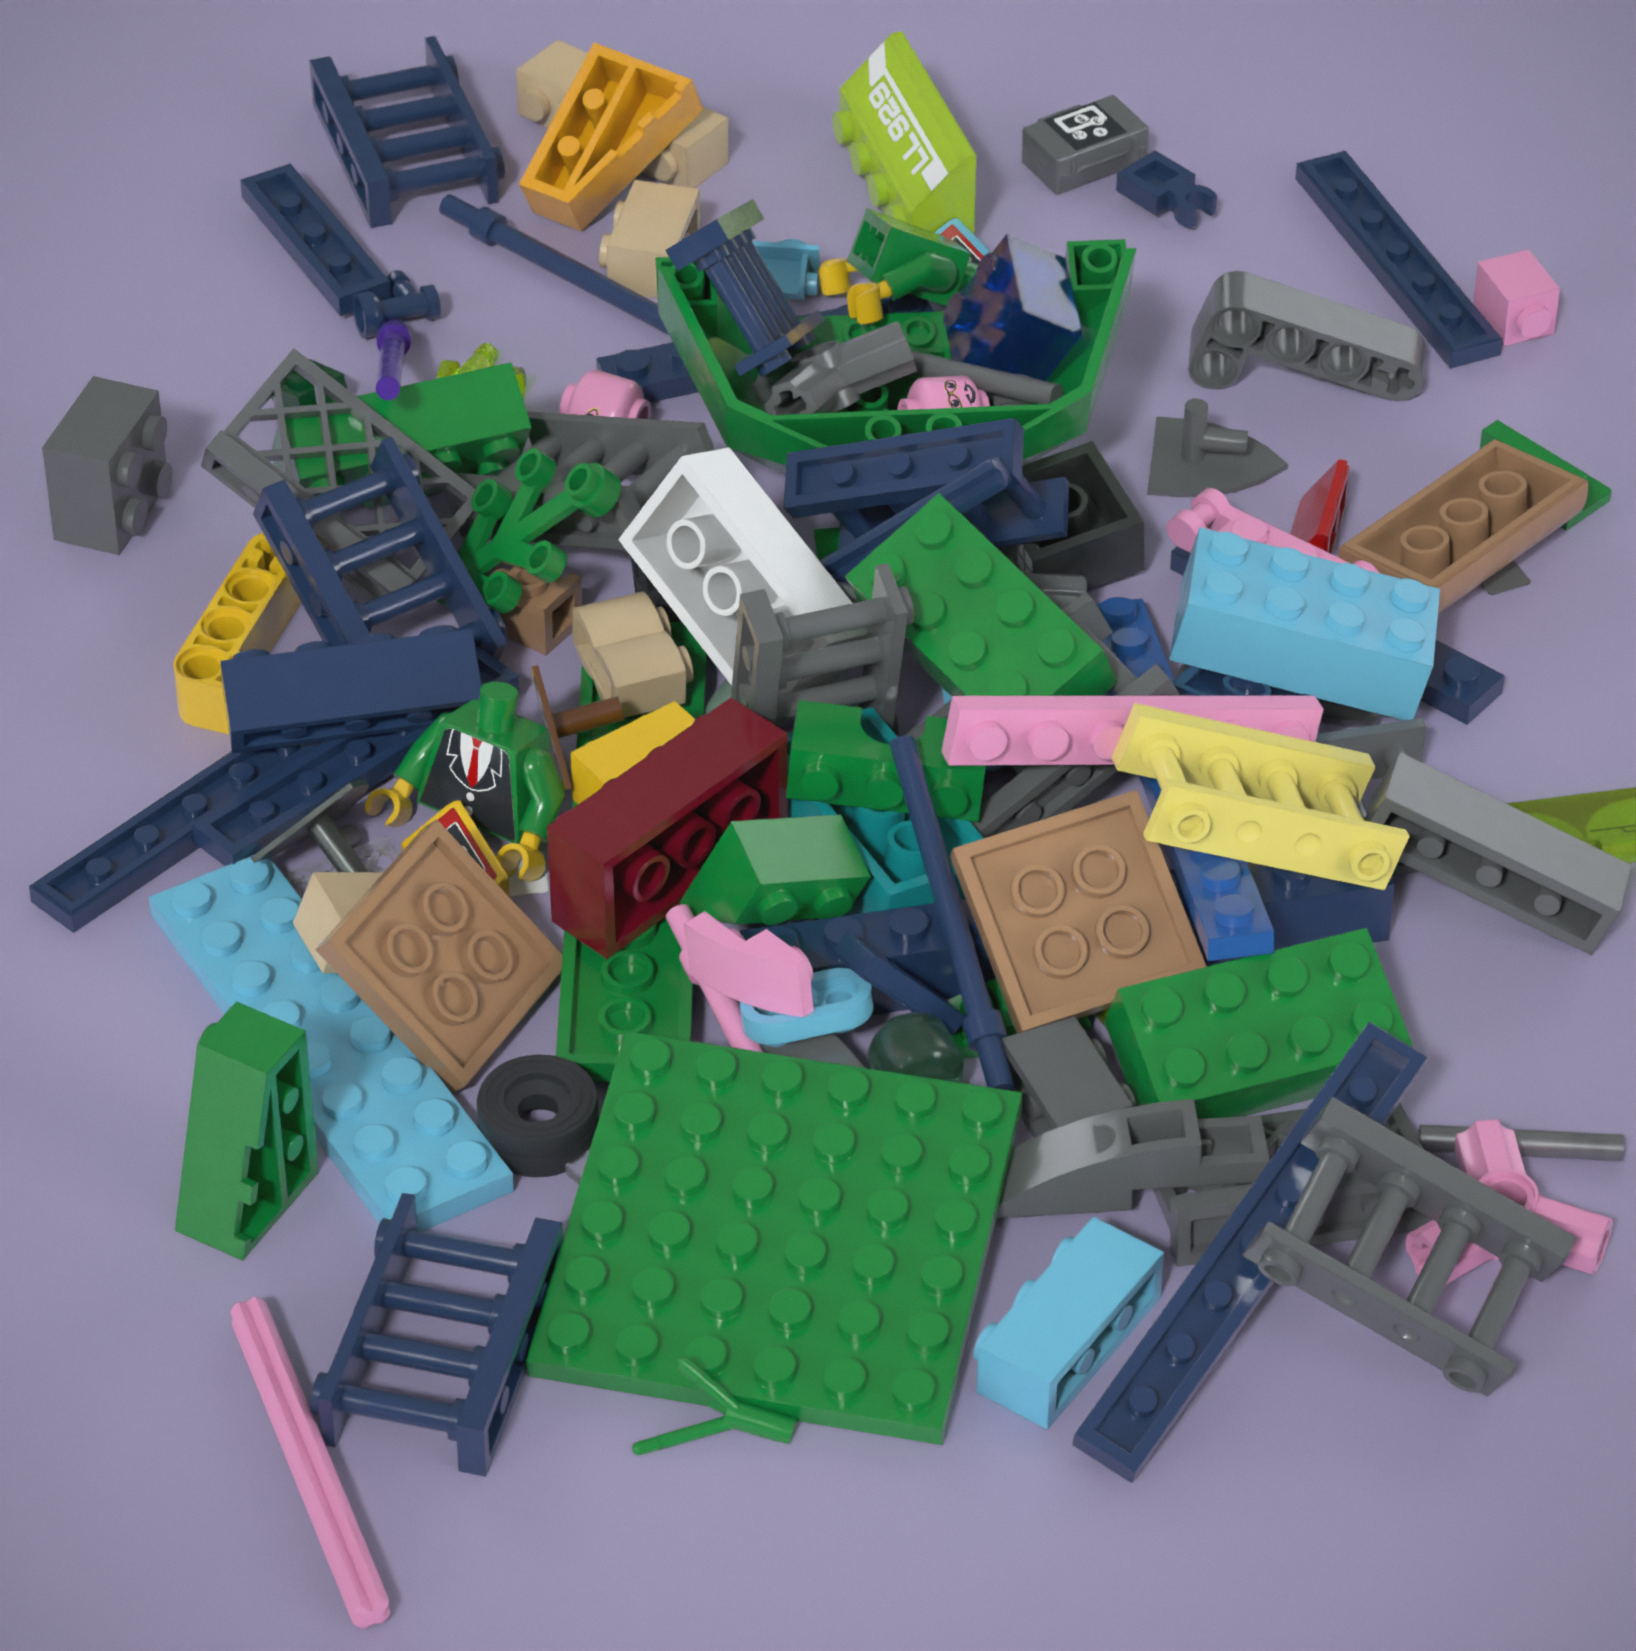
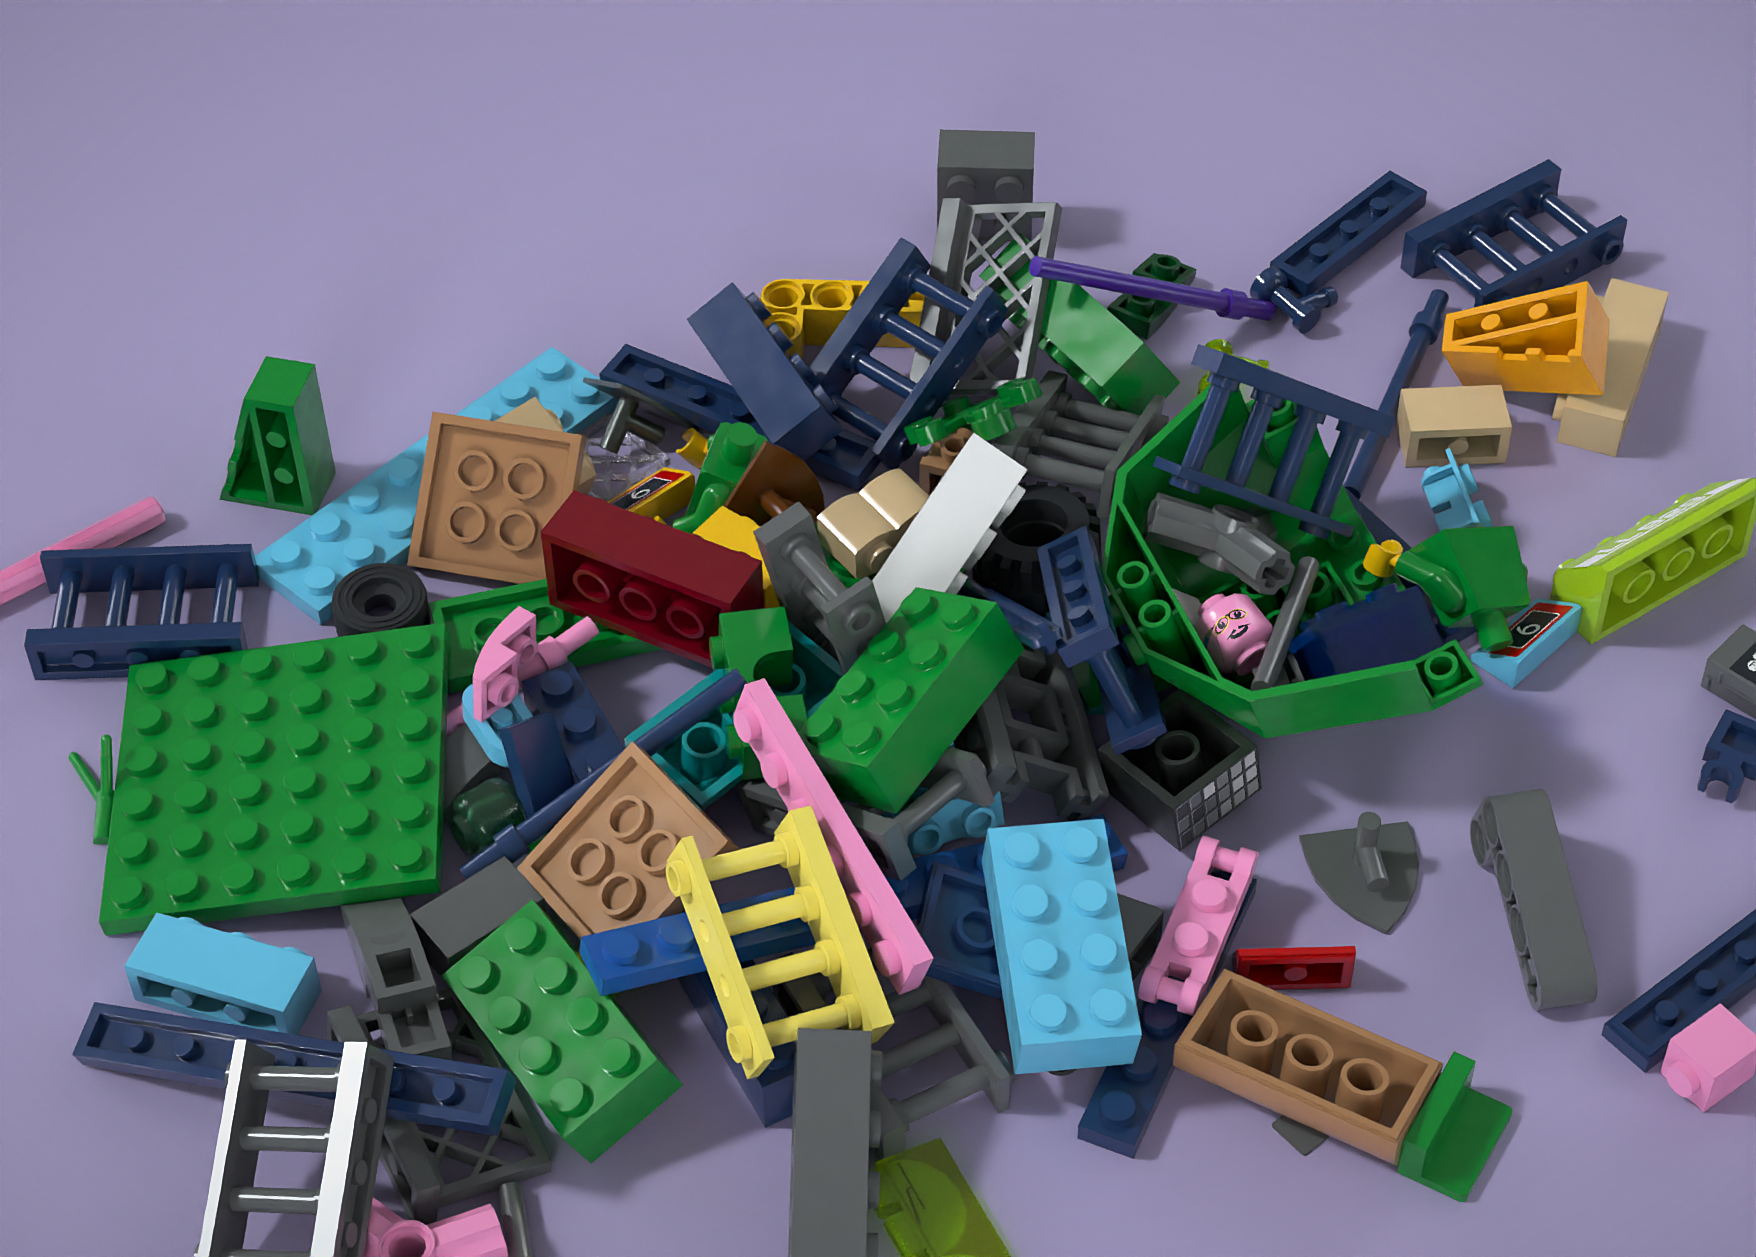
camera: 75 degrees right, 5 degrees up
(151, 839) = (608, 330): dark blue tile -> none
(779, 872) = (624, 665): green slope -> none

